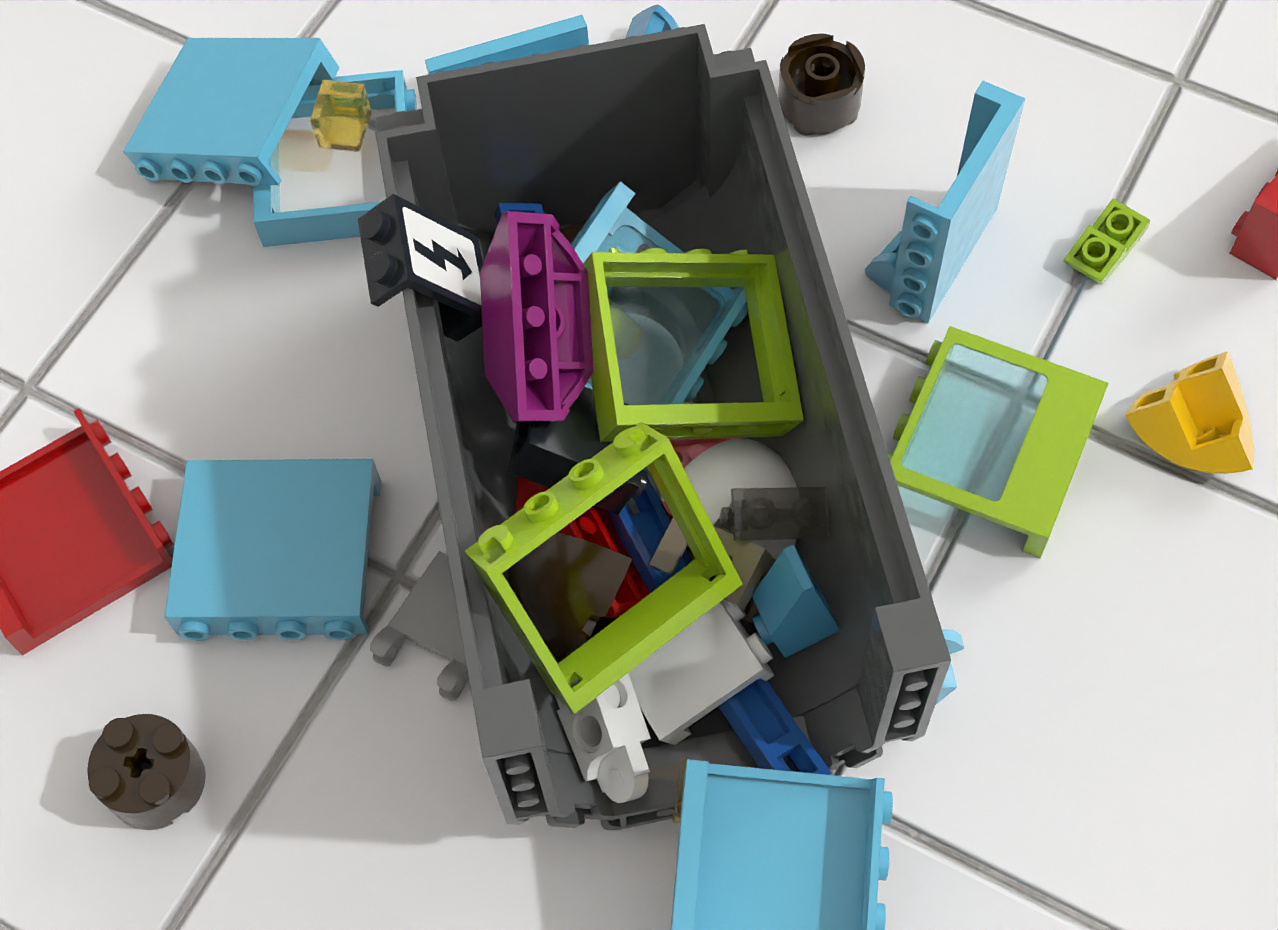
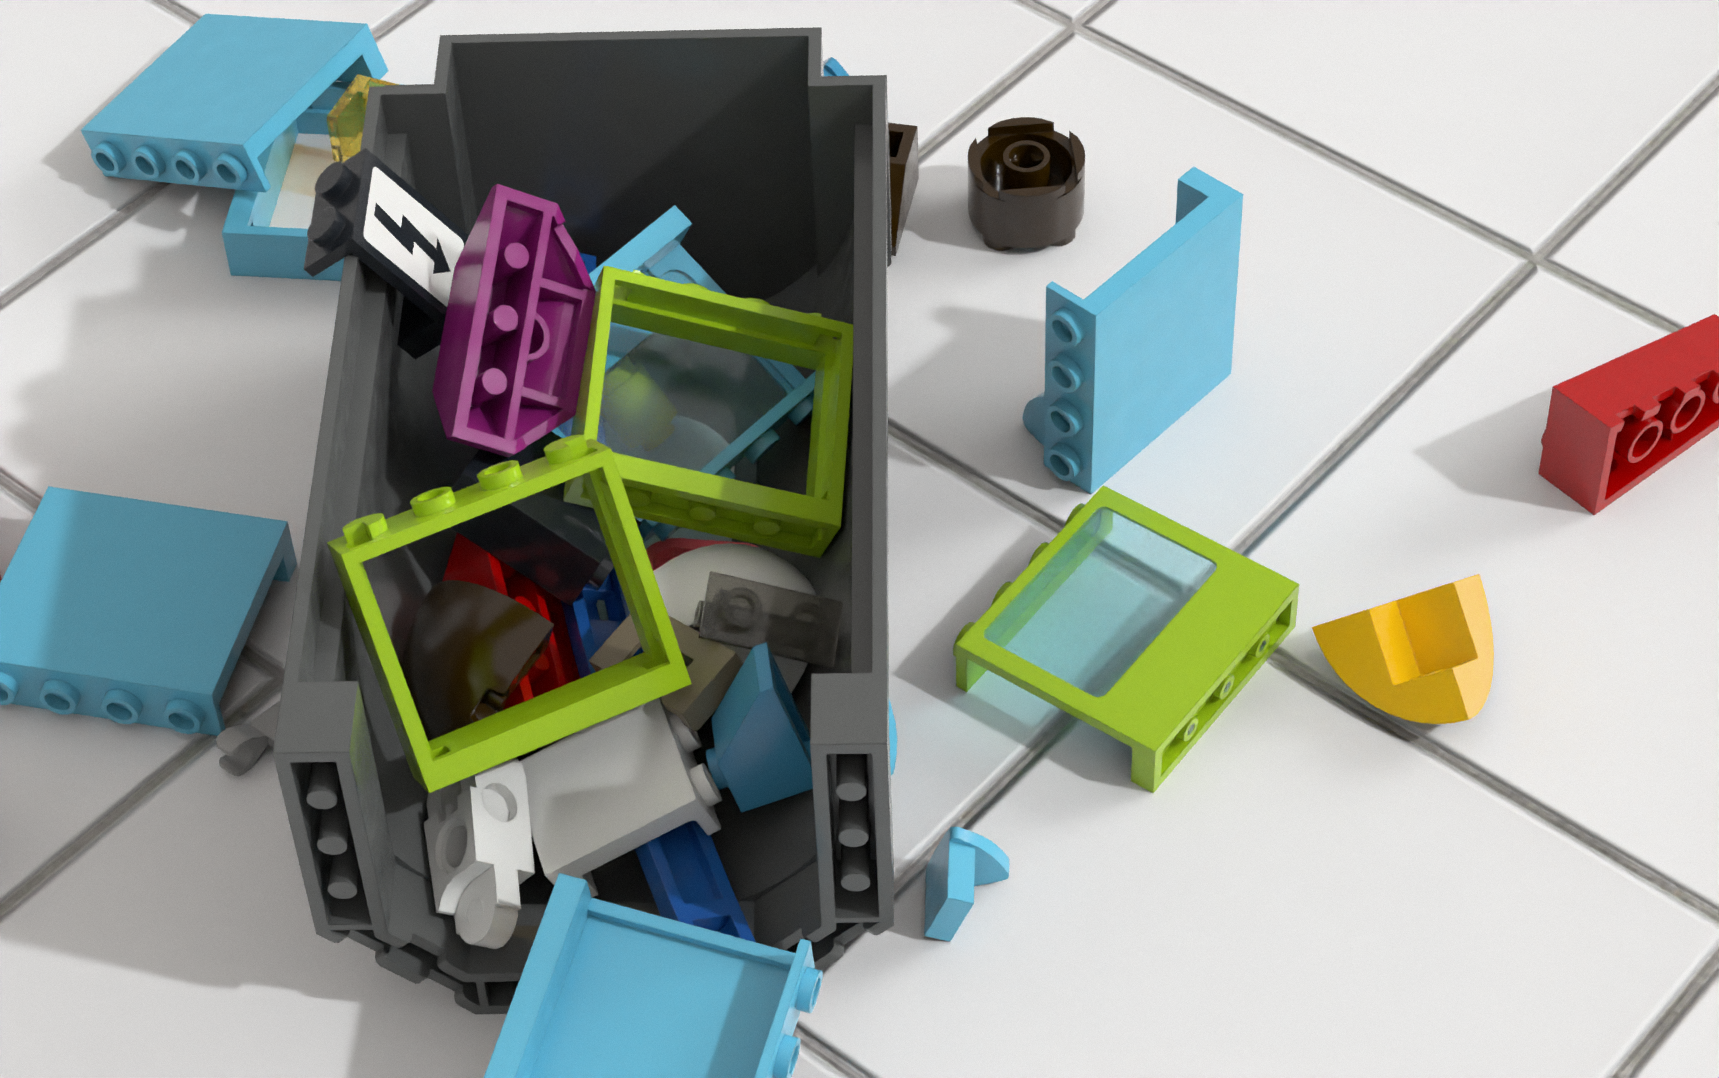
camera: 10 degrees right, 15 degrees down
(1107, 241) = (1369, 433): lime slope -> none

